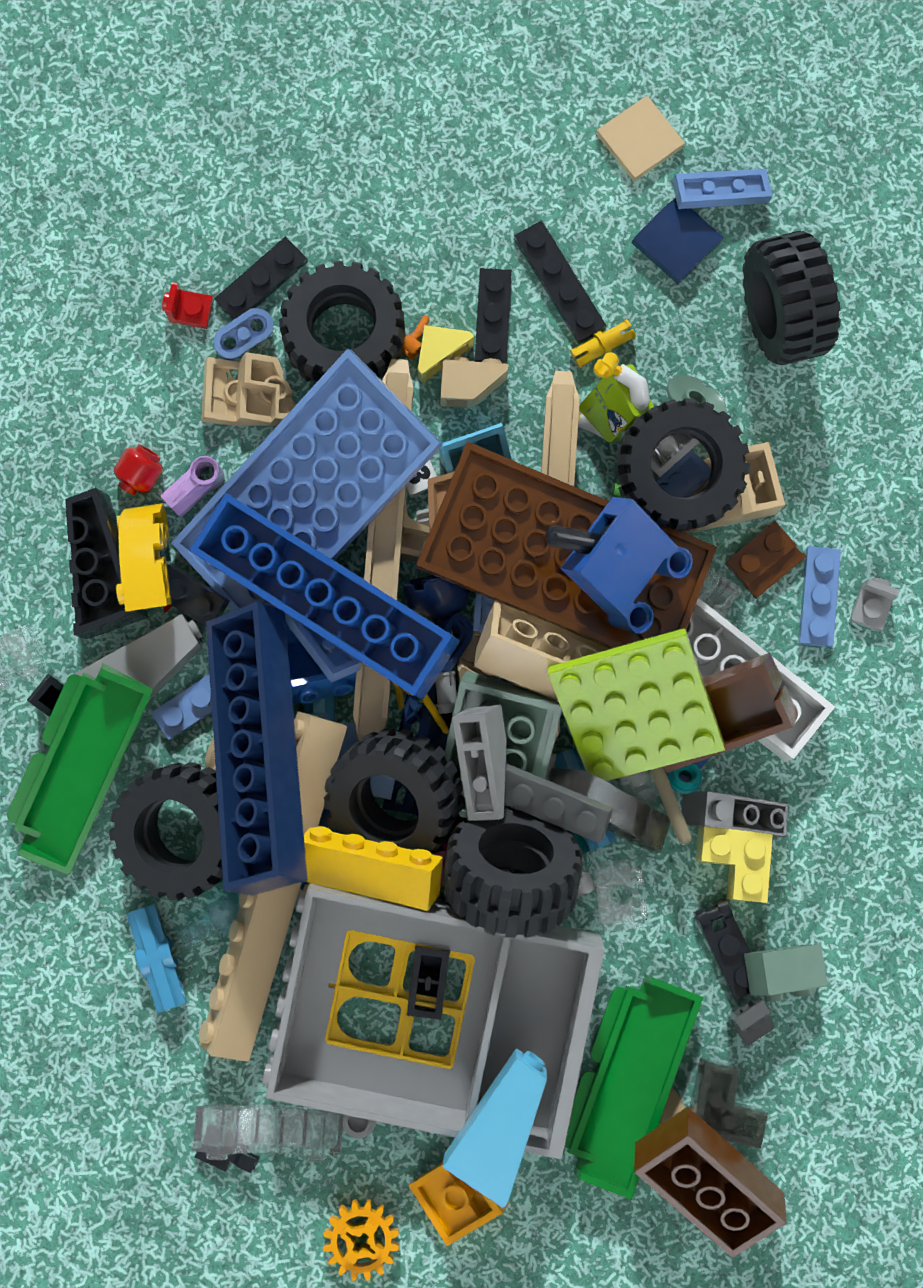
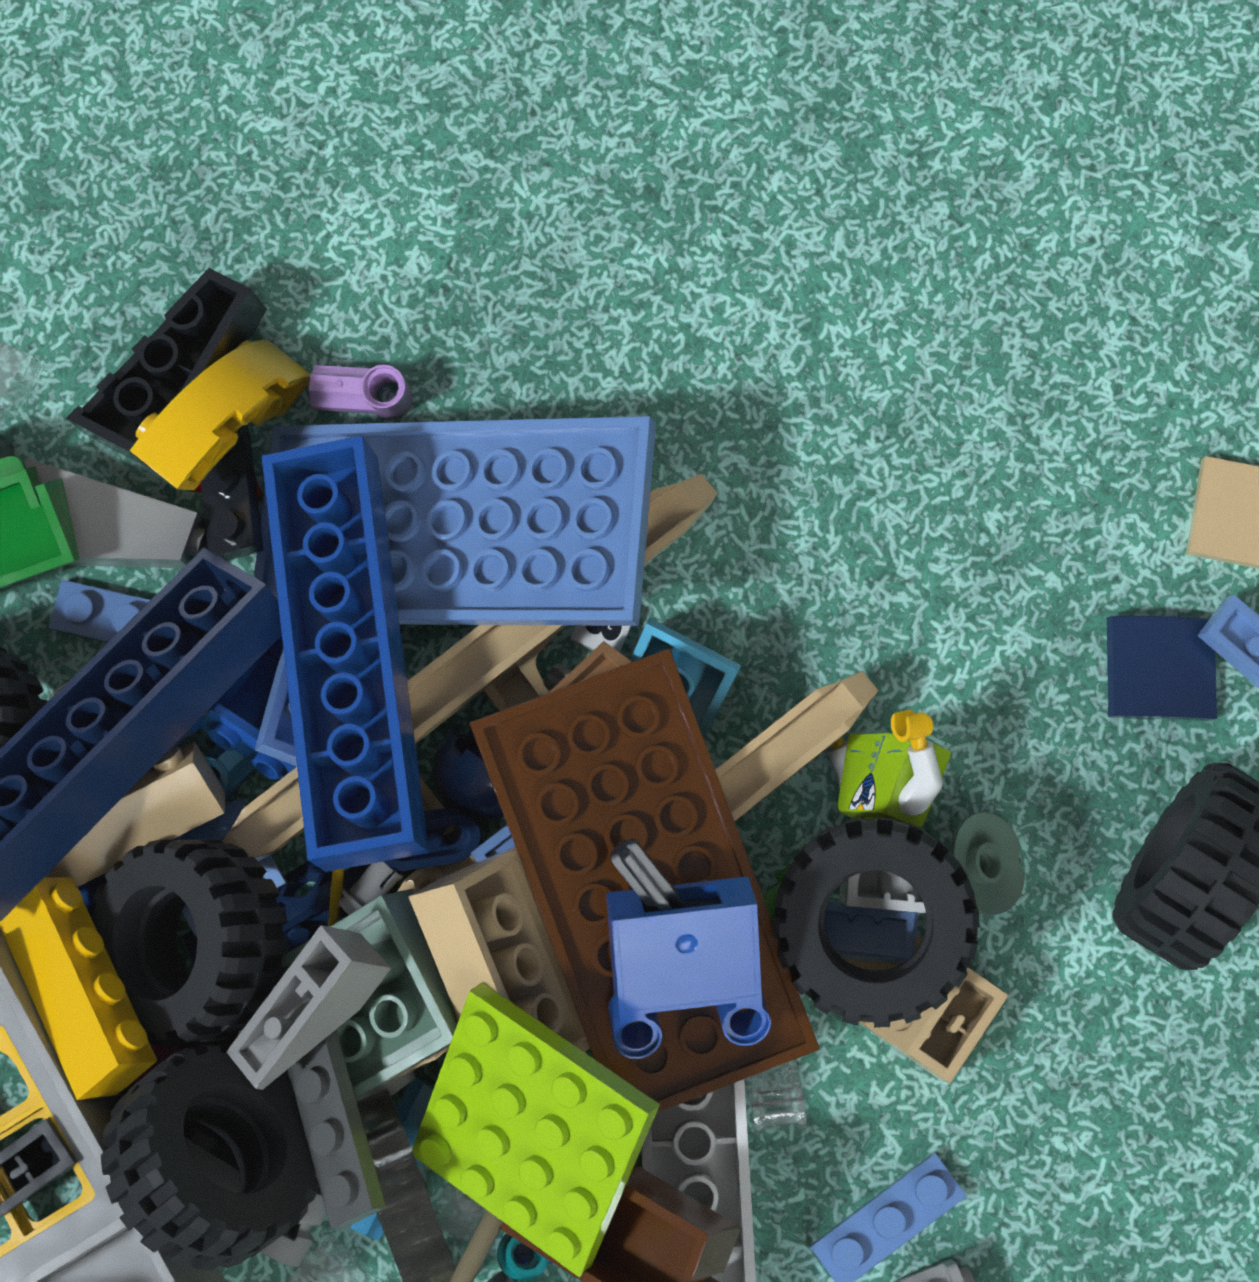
camera: 50 degrees right, 0 degrees up
(138, 469) = (322, 314): red head -> none
(187, 307) = (559, 195): red bracket -> none
(241, 332) = (585, 284): medium blue plate -> none
(254, 399) = (522, 364): tan slope -> none
(261, 279) = (667, 246): black plate -> none
(337, 287) = (706, 324): black tyre -> none
(411, 345) = (747, 479): orange hand -> none
(441, 345) = (771, 516): light yellow slope -> none
(469, 382) = (763, 586): tan slope -> none
(493, 314) = (869, 540): black plate -> none
(560, 282) = (982, 579): black plate -> none
(602, 343) = (954, 694): yellow pin -> none
(765, 559) = (873, 1116): reddish brown plate -> none

